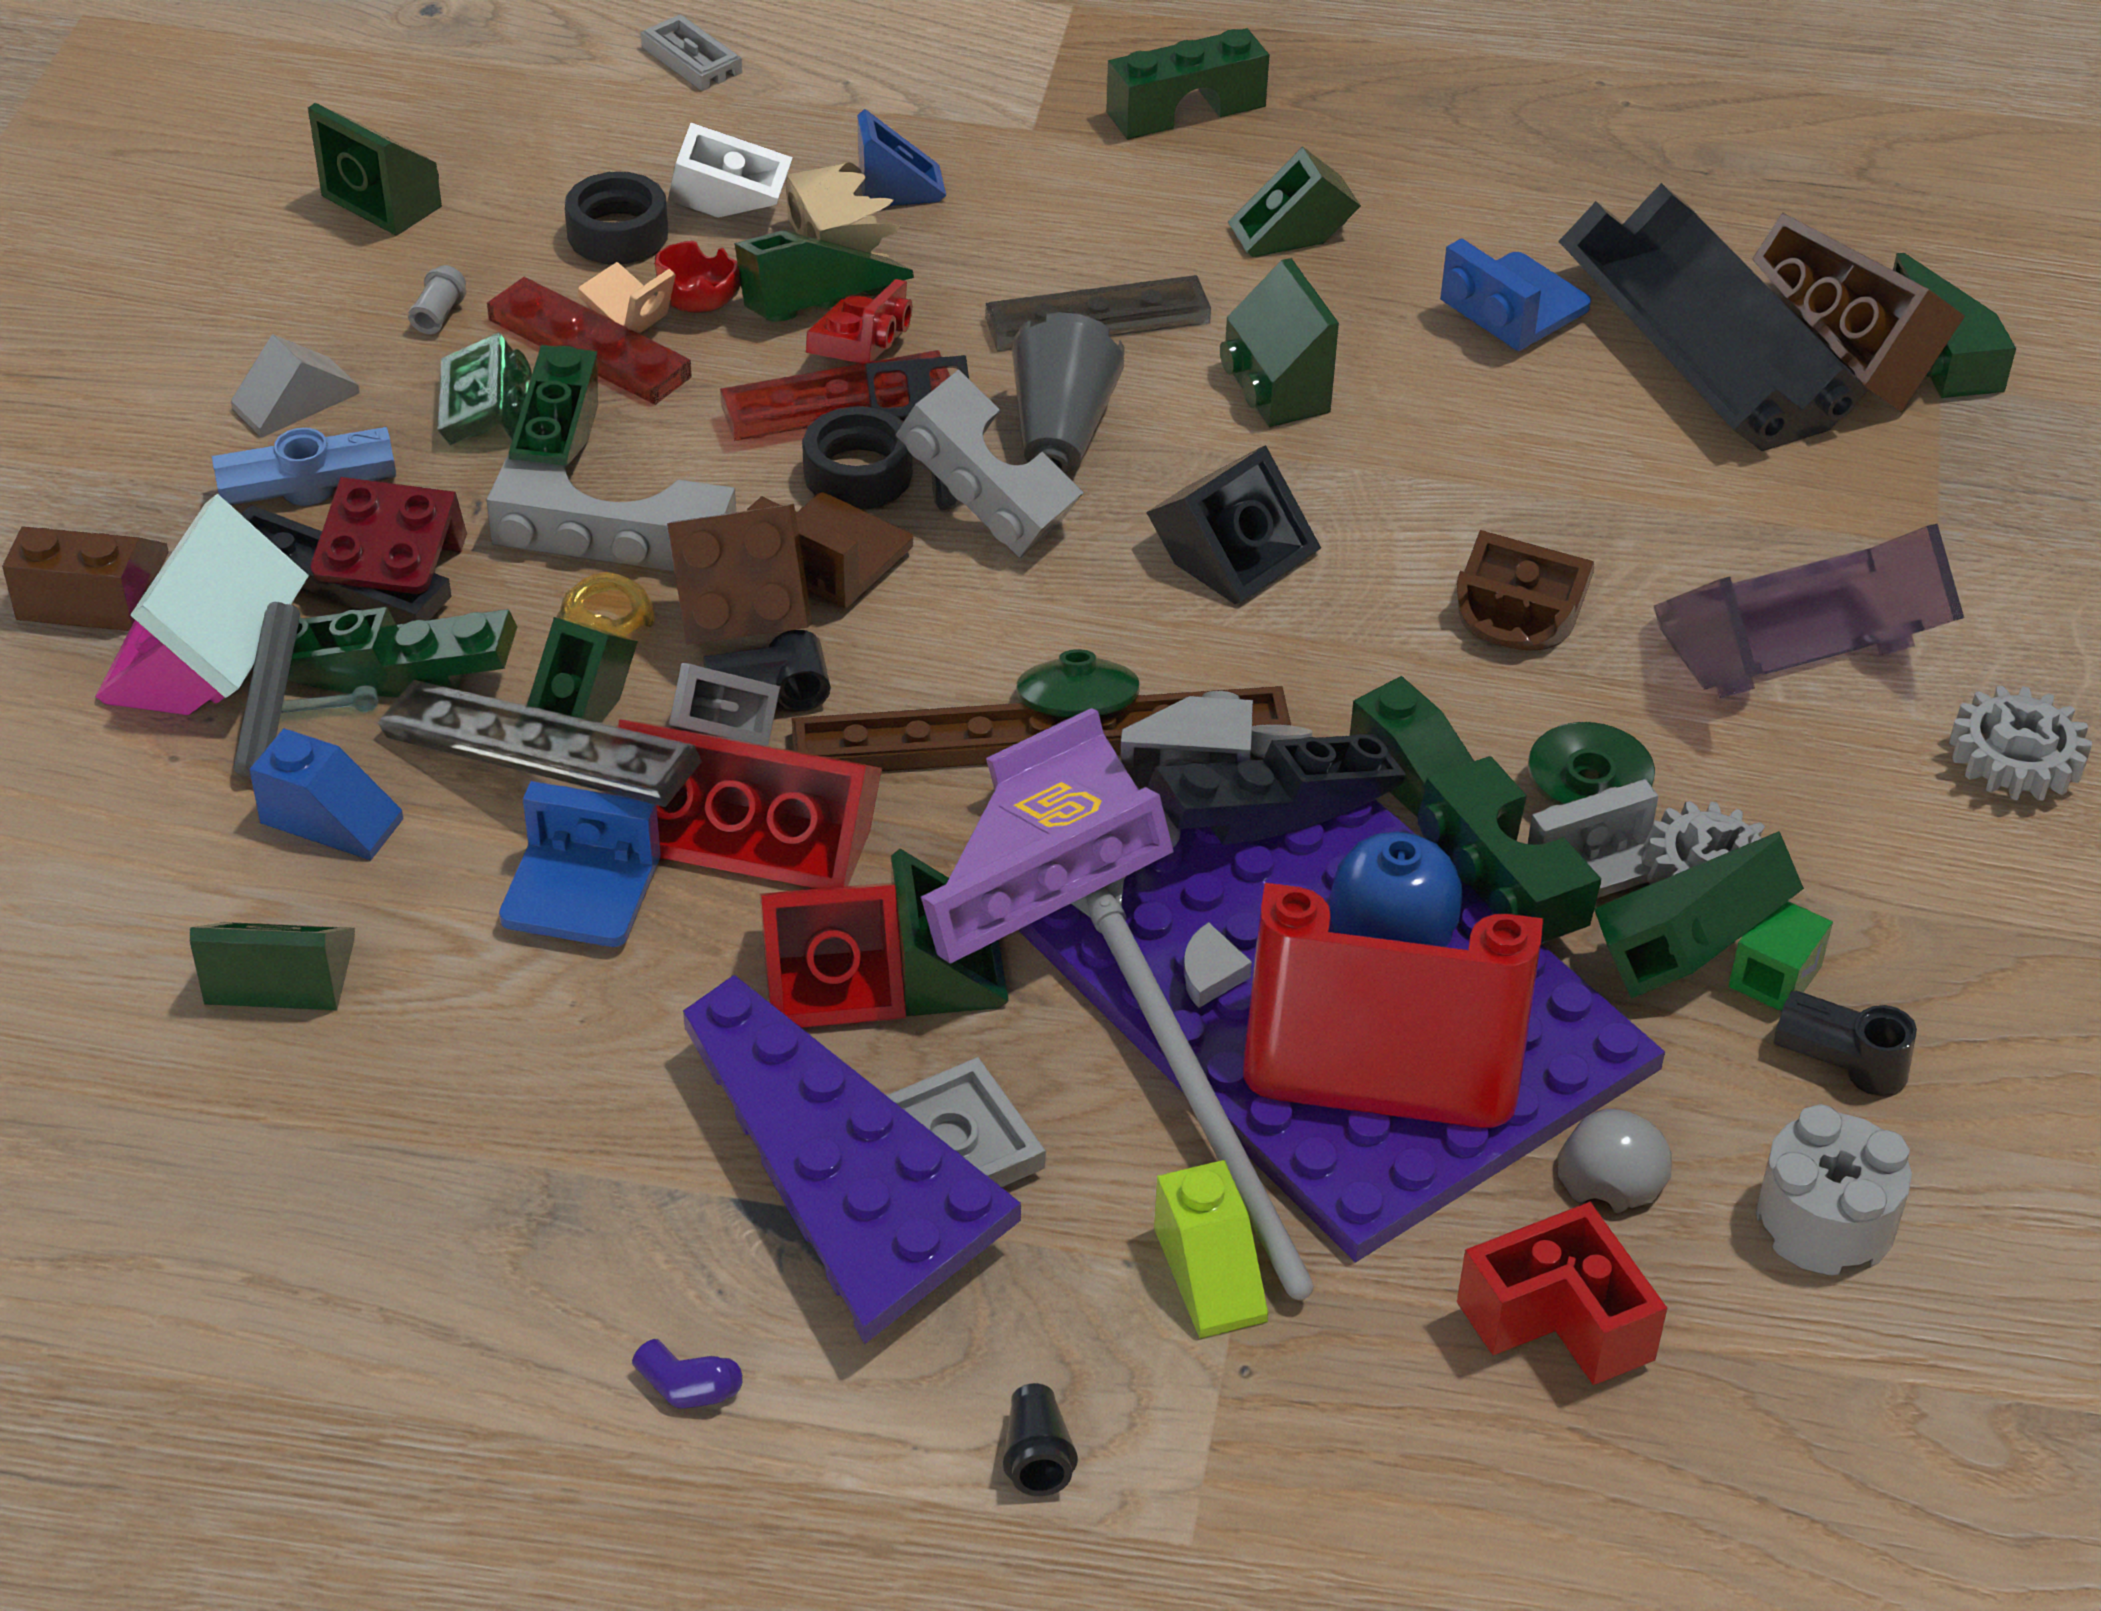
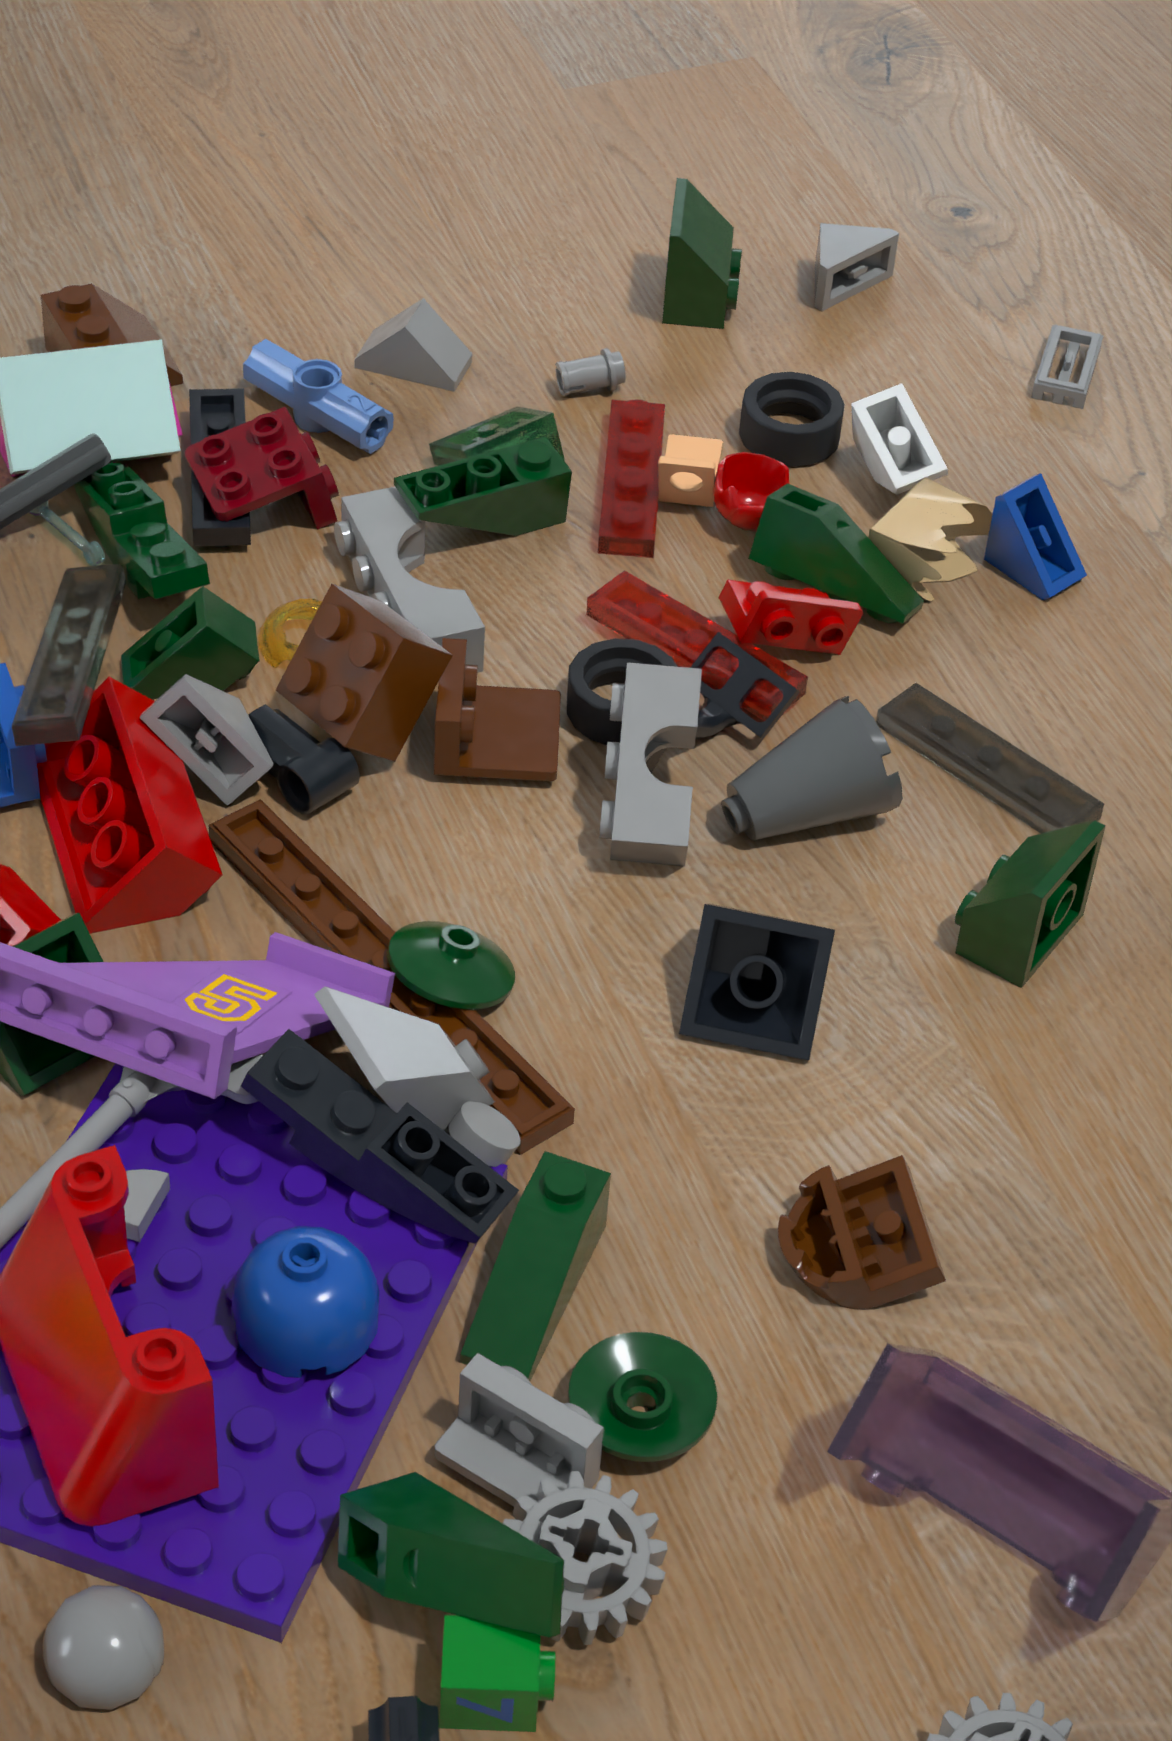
camera: 55 degrees right, 0 degrees up
(444, 95) = (851, 261): none -> light grey slope
(1477, 820) = (391, 1406): dark green arch -> none

